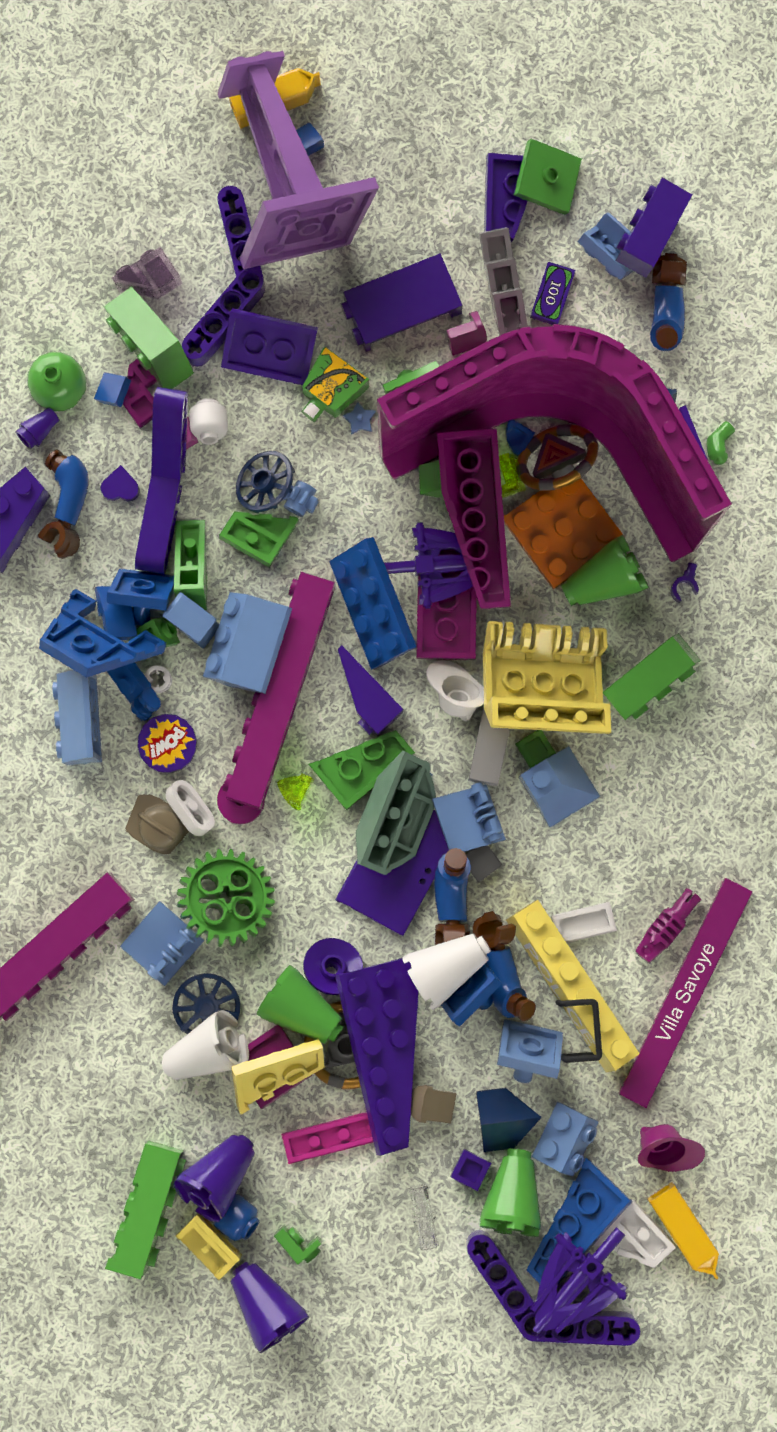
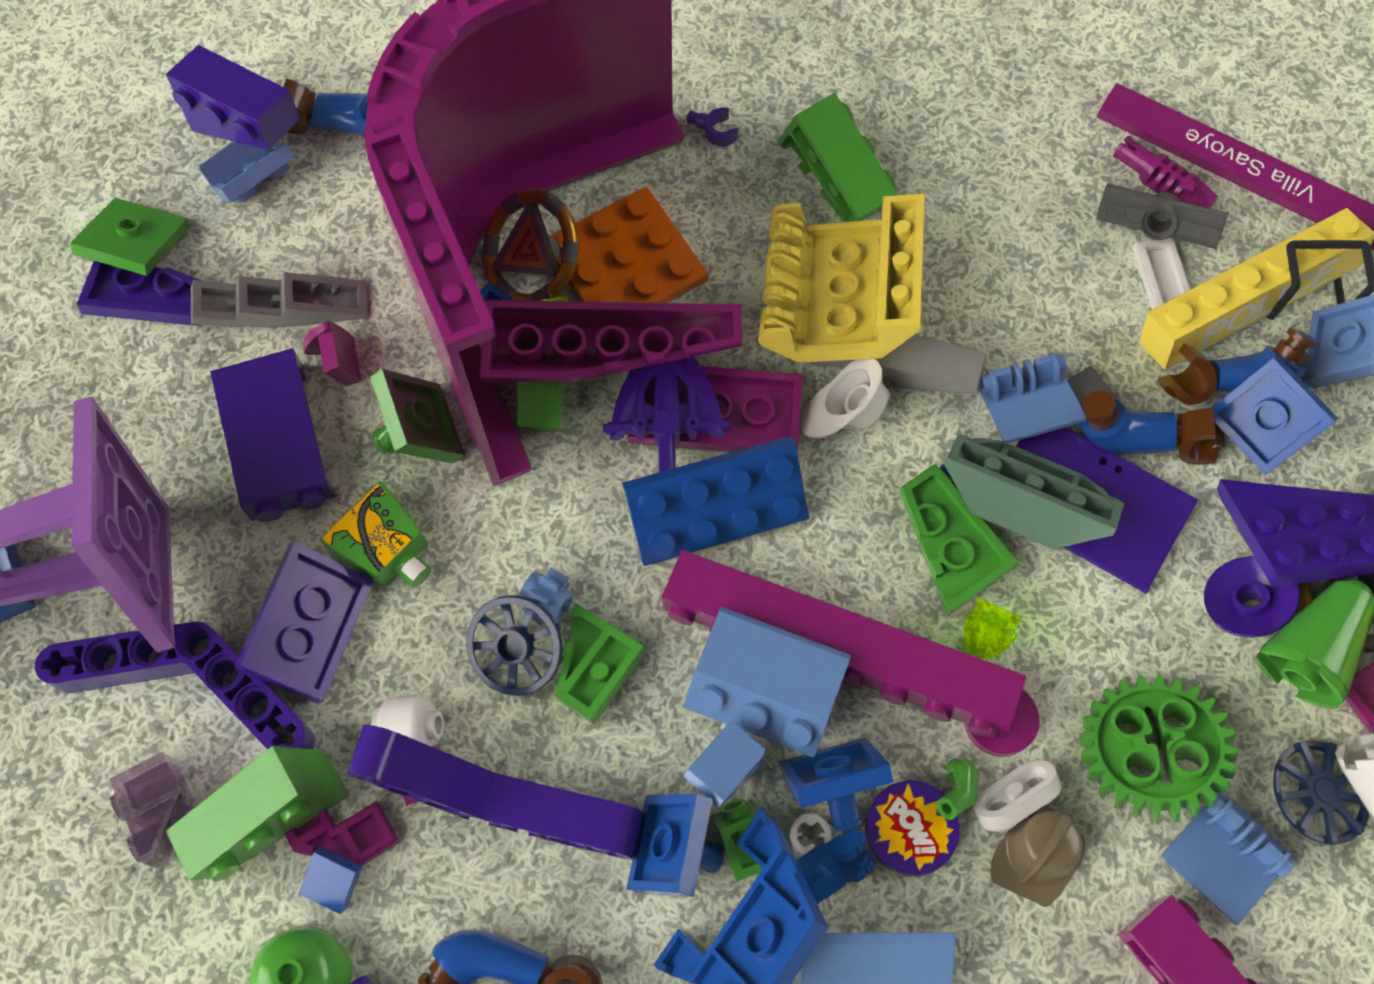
camera: 90 degrees left, 15 degrees down
(117, 619) = (717, 891): blue slope -> none
(120, 485) = (490, 879): dark purple tile -> none
(190, 690) = (835, 777): none -> blue tile
(191, 561) = (629, 767): bright green slope -> none
(191, 775) = (965, 792): none -> bright green arm
(359, 418) = (434, 510): medium blue piece -> none
(370, 699) = (850, 522): dark purple slope -> none
(446, 966) = (1254, 428): white cone -> none
(535, 748) = (935, 316): bright green tile -> none
(552, 293) = (296, 247): dark purple tile -> none
(559, 786) = (979, 293): medium blue slope -> none
(606, 575) = (698, 203): bright green cone -> none
(628, 918) = (1187, 221): none -> dark grey piece

